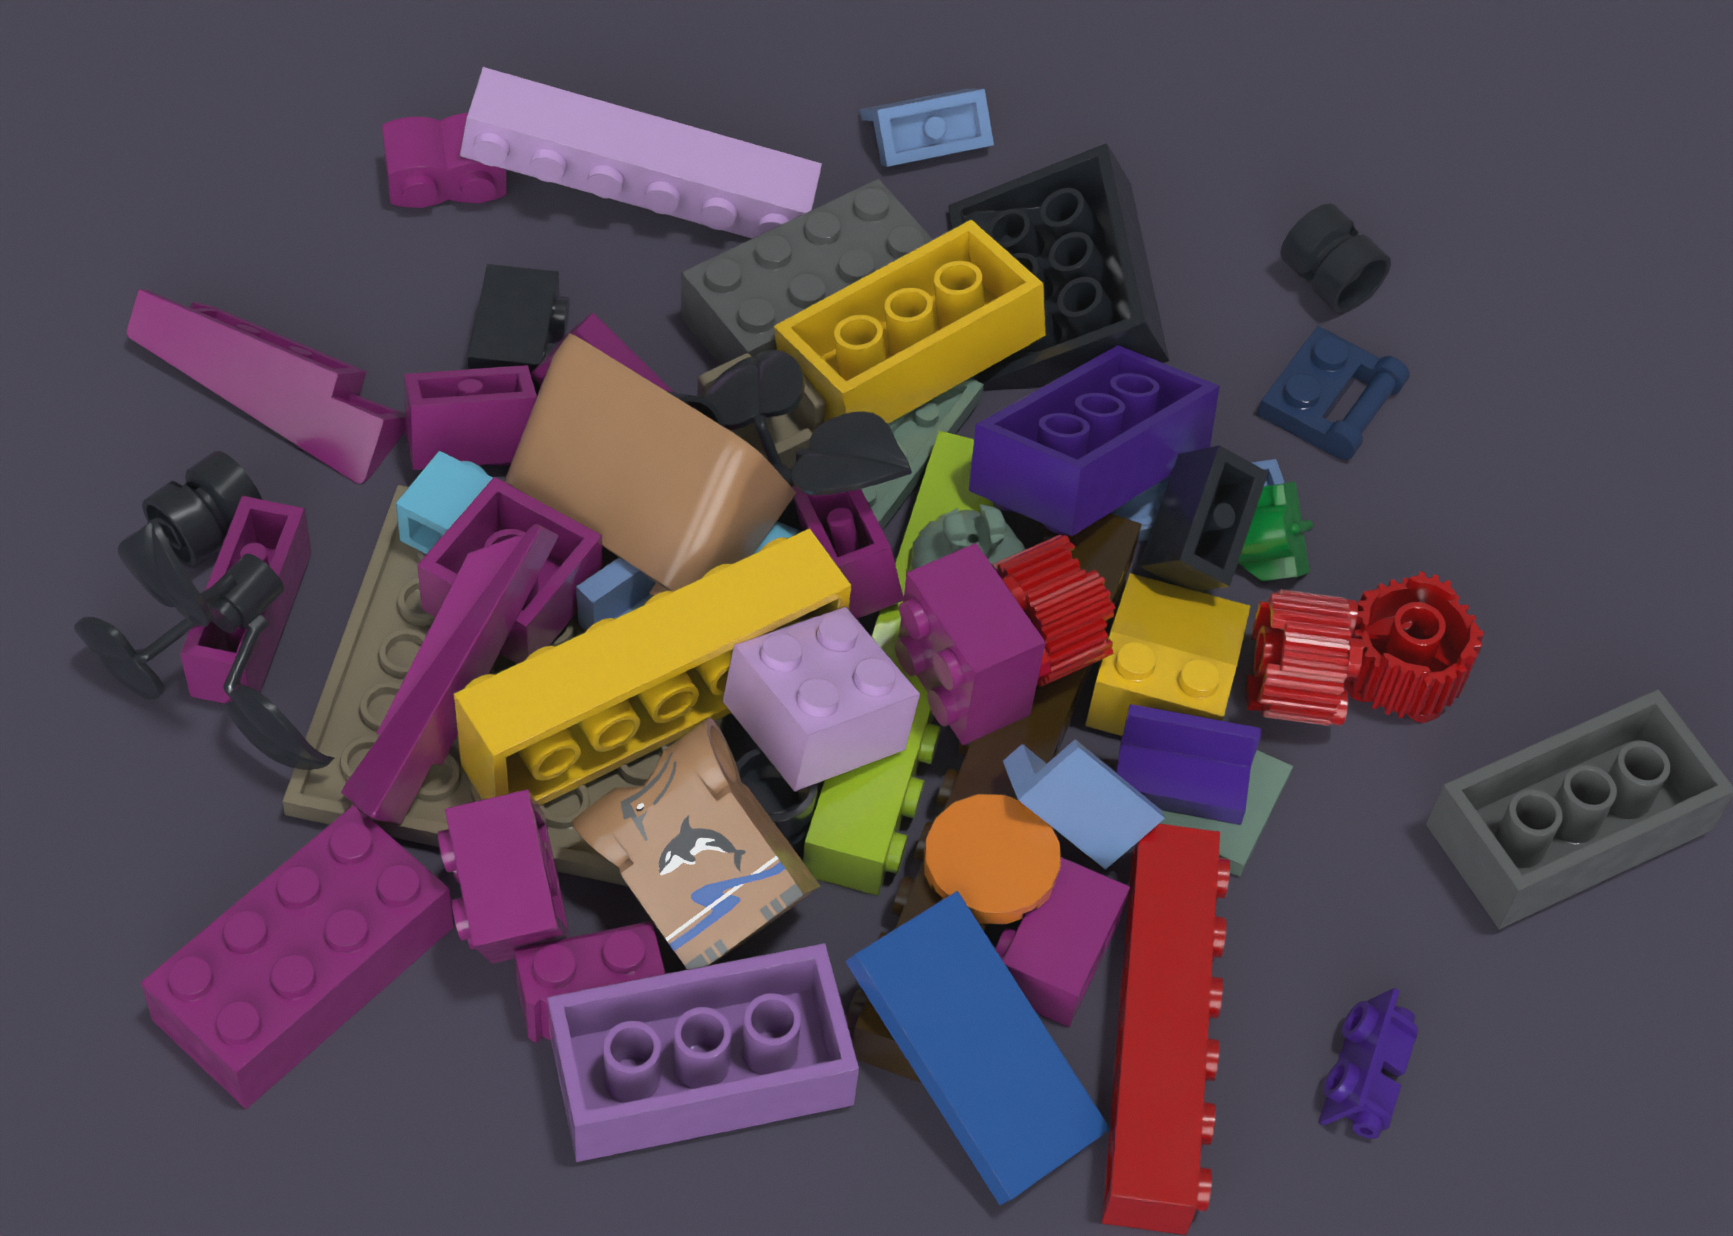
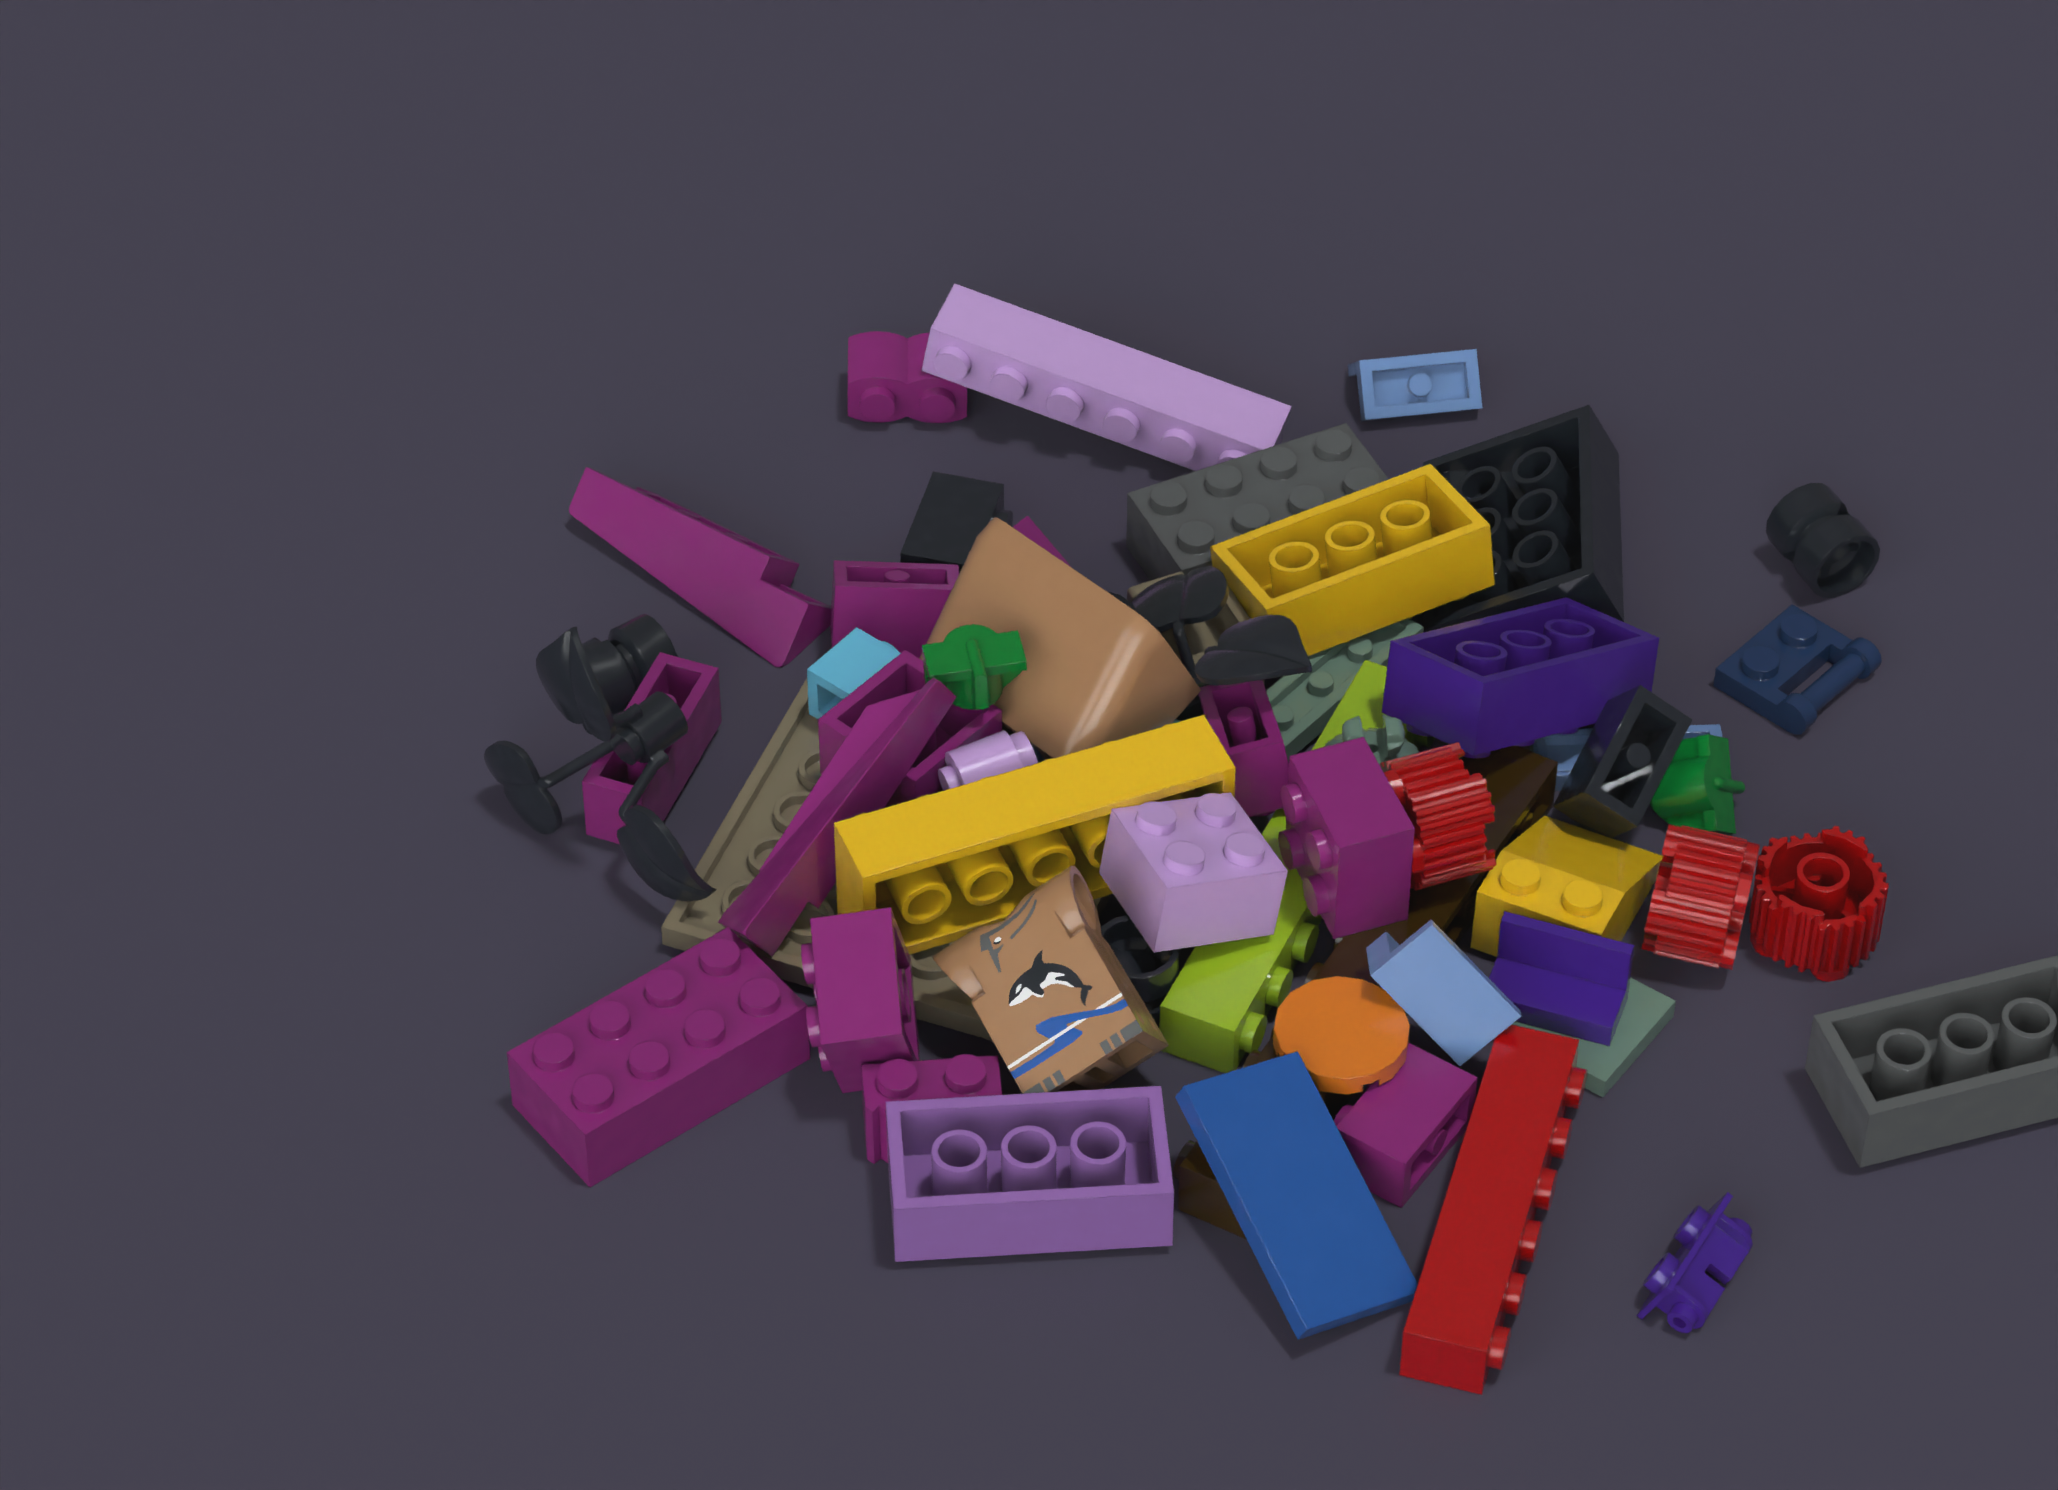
camera: 15 degrees right, 10 degrees down
(570, 495) = (975, 664): none -> green piece
(597, 596) = (986, 758): none -> lavender brick

